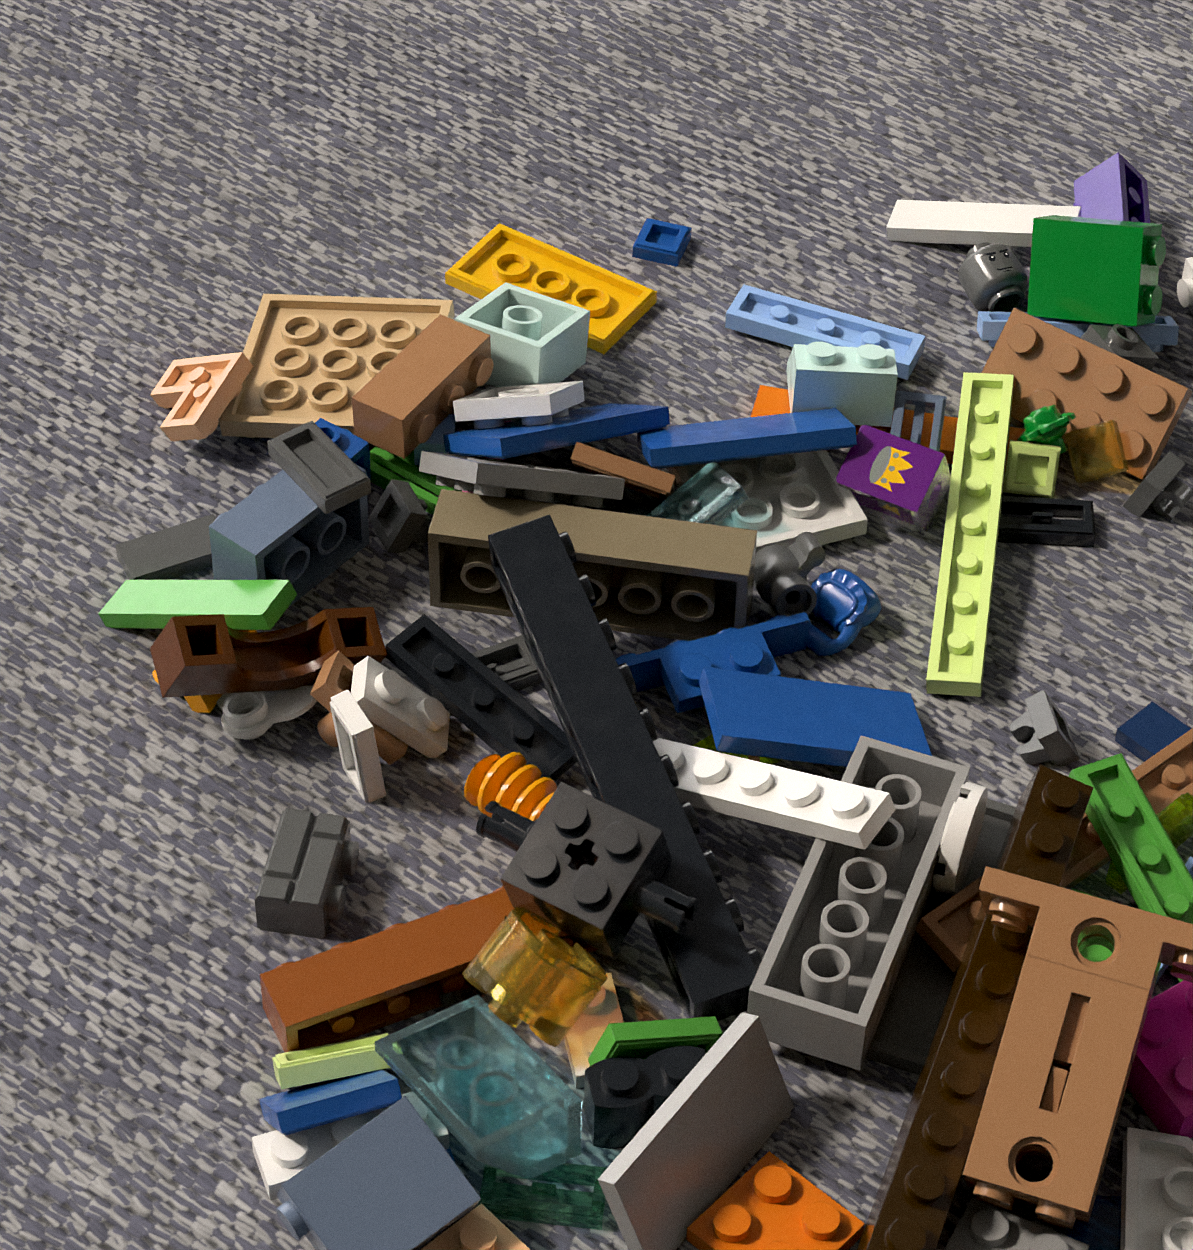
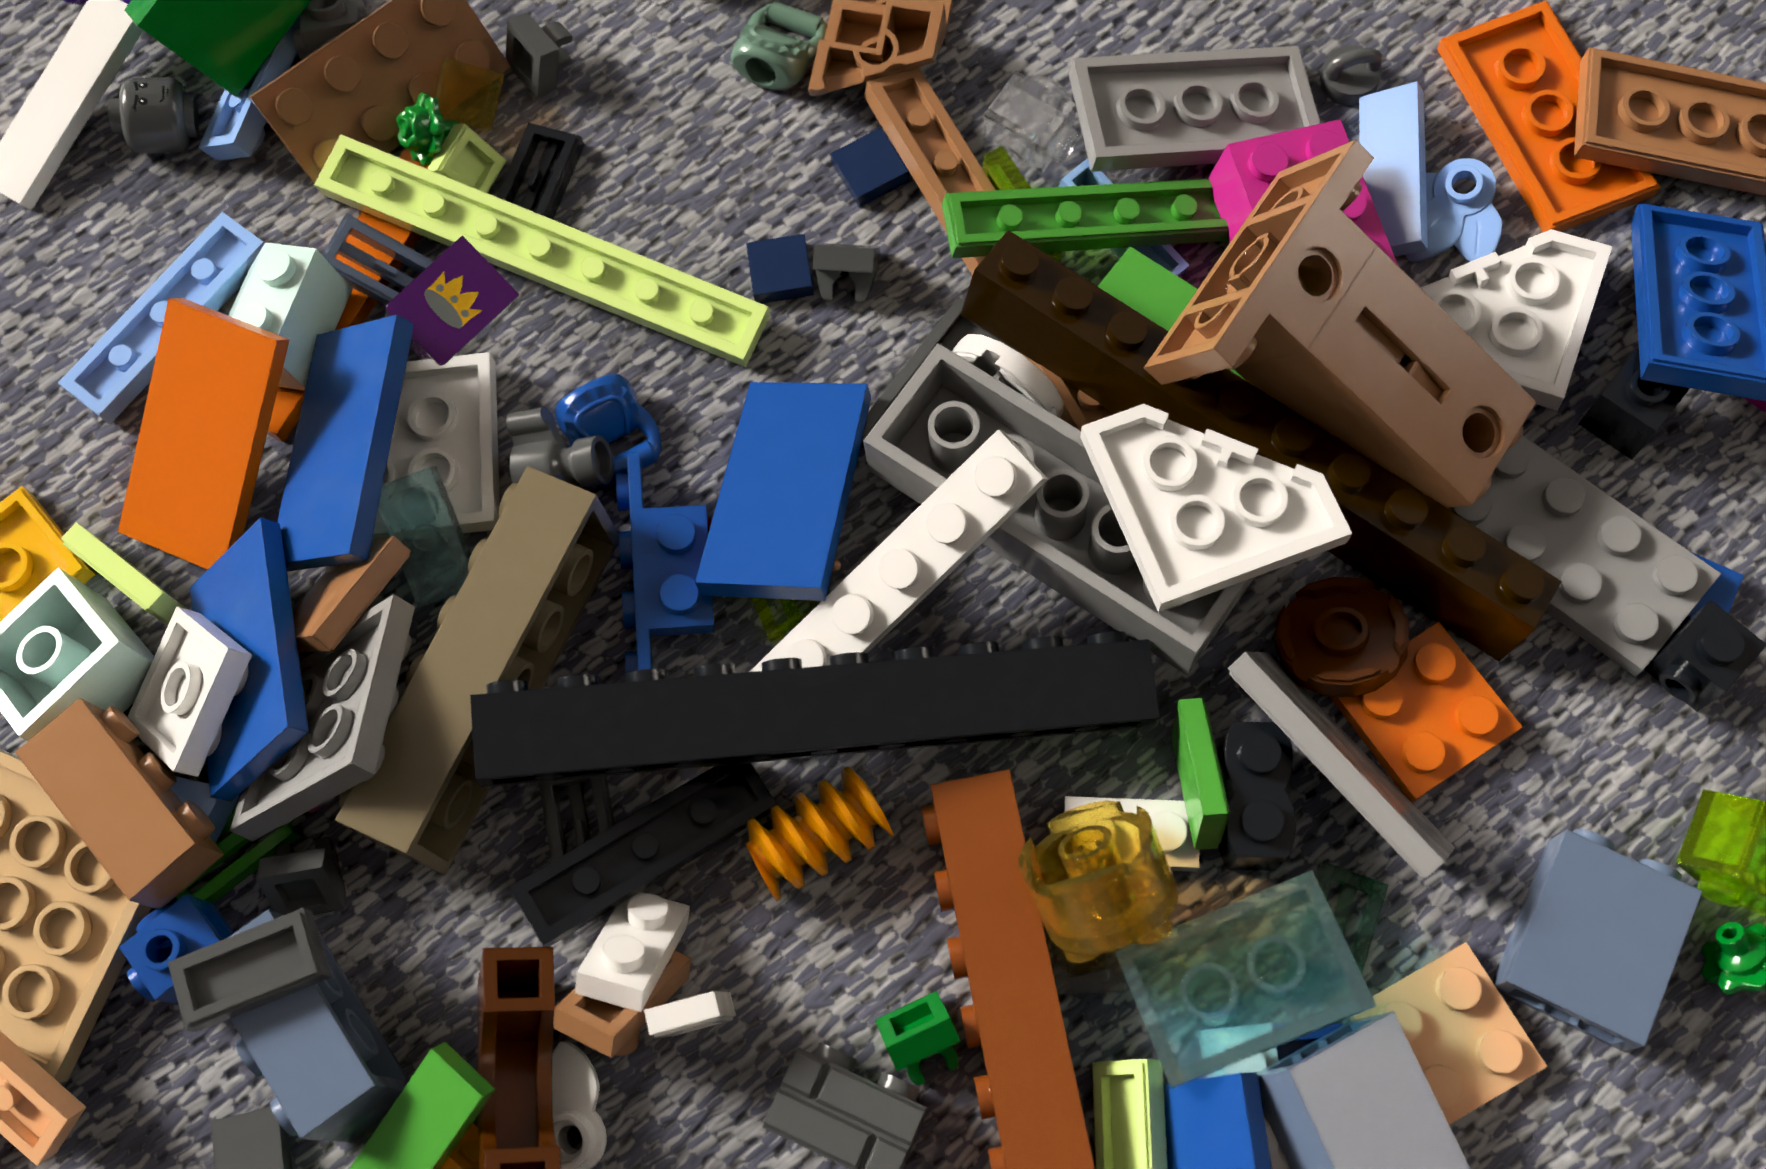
camera: 65 degrees left, 25 degrees up
(376, 903) = (917, 1033): none -> green tile
(587, 868) = (1037, 787): black brick -> none
(605, 359) = (121, 573): none -> yellowish green tile
(728, 359) = (202, 432): none -> orange tile
(822, 1146) = (1342, 637): none -> reddish brown tile
(879, 961) = (1206, 505): none -> white plate
(1015, 686) = (779, 269): none -> dark blue tile

